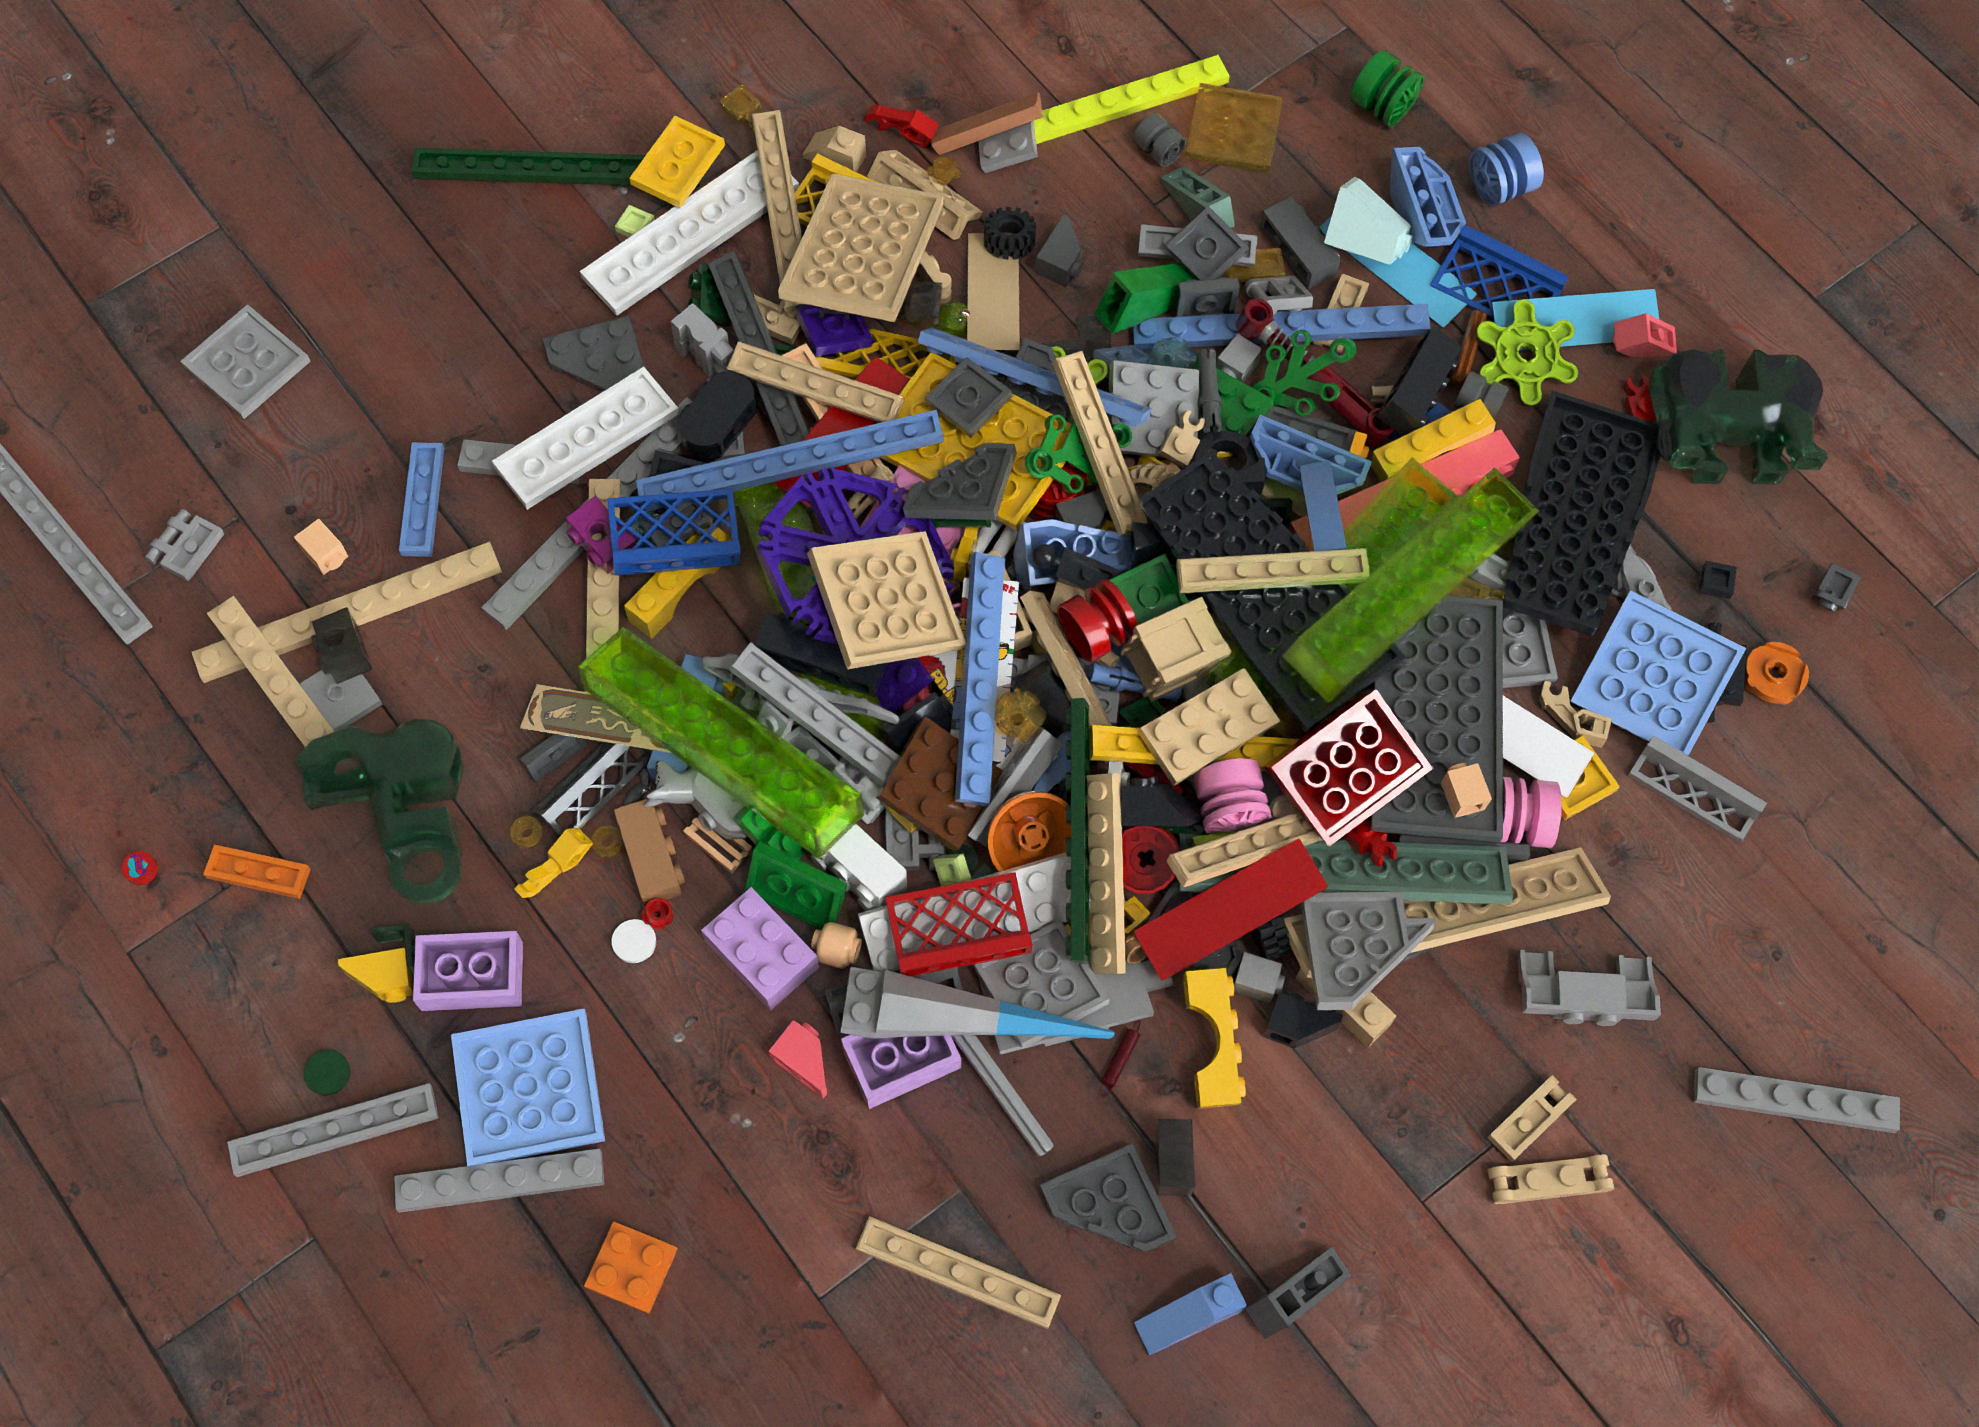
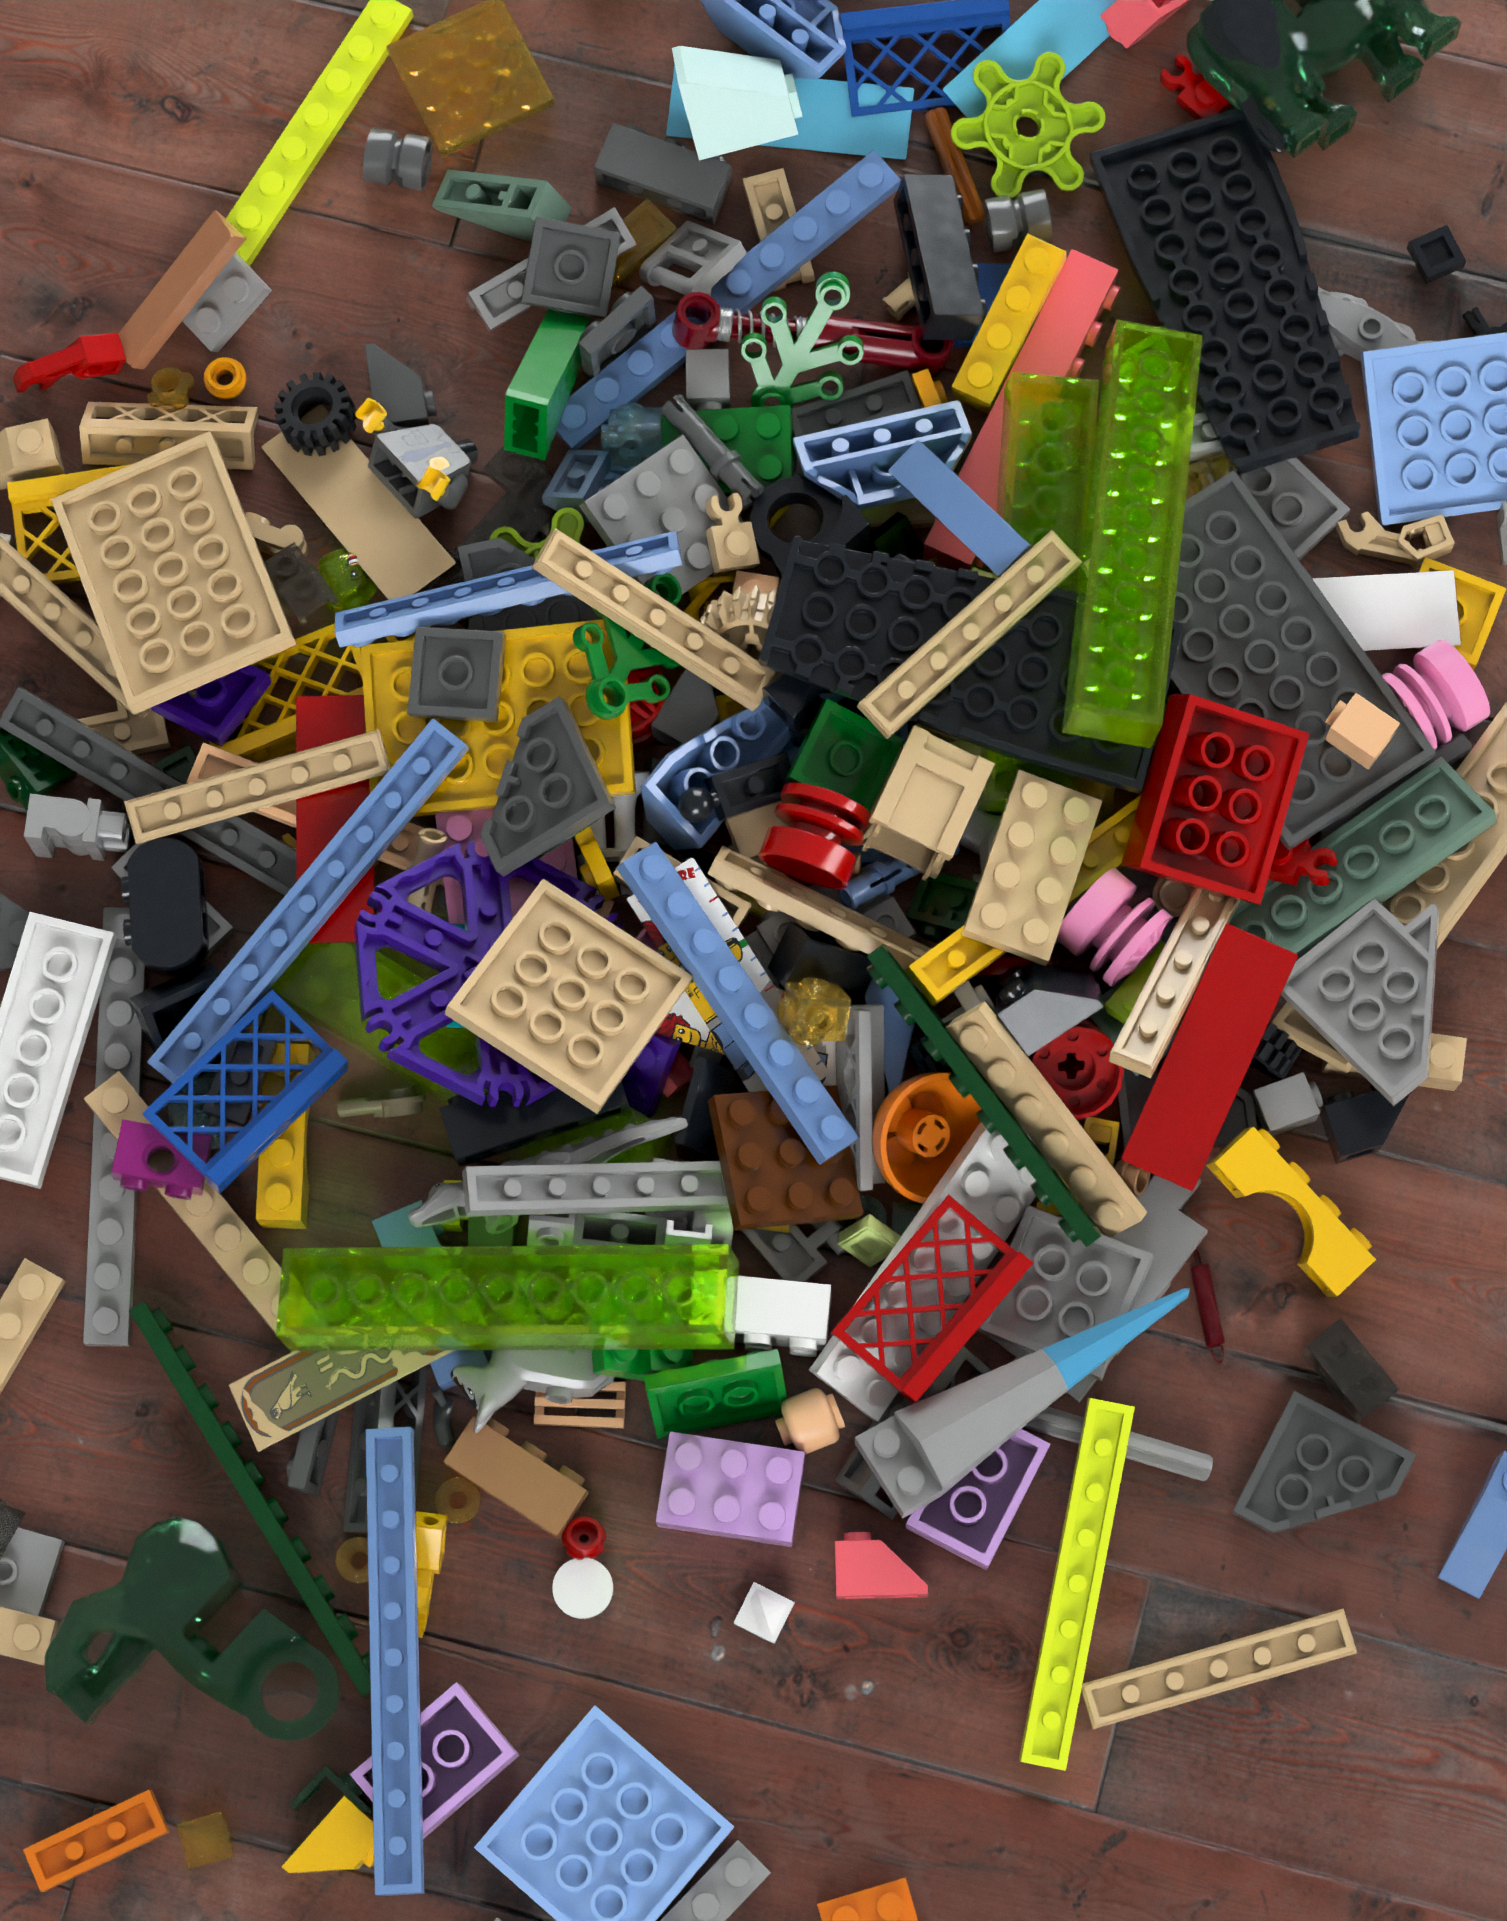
camera: 30 degrees left, 10 degrees up
(314, 918) = (205, 1840): none -> clear yellow plate
(489, 893) = (394, 1662): none -> medium blue plate
(498, 768) = (246, 1479): none -> dark green plate
(722, 1034) = (764, 1613): none -> white tile
(756, 608) = (400, 1102): none -> dark tan plate
(912, 1154) = (1076, 1584): none -> neon yellow plate
(974, 179) = (221, 367): none -> light orange plate
(1041, 291) = (417, 462): none -> dark grey torso

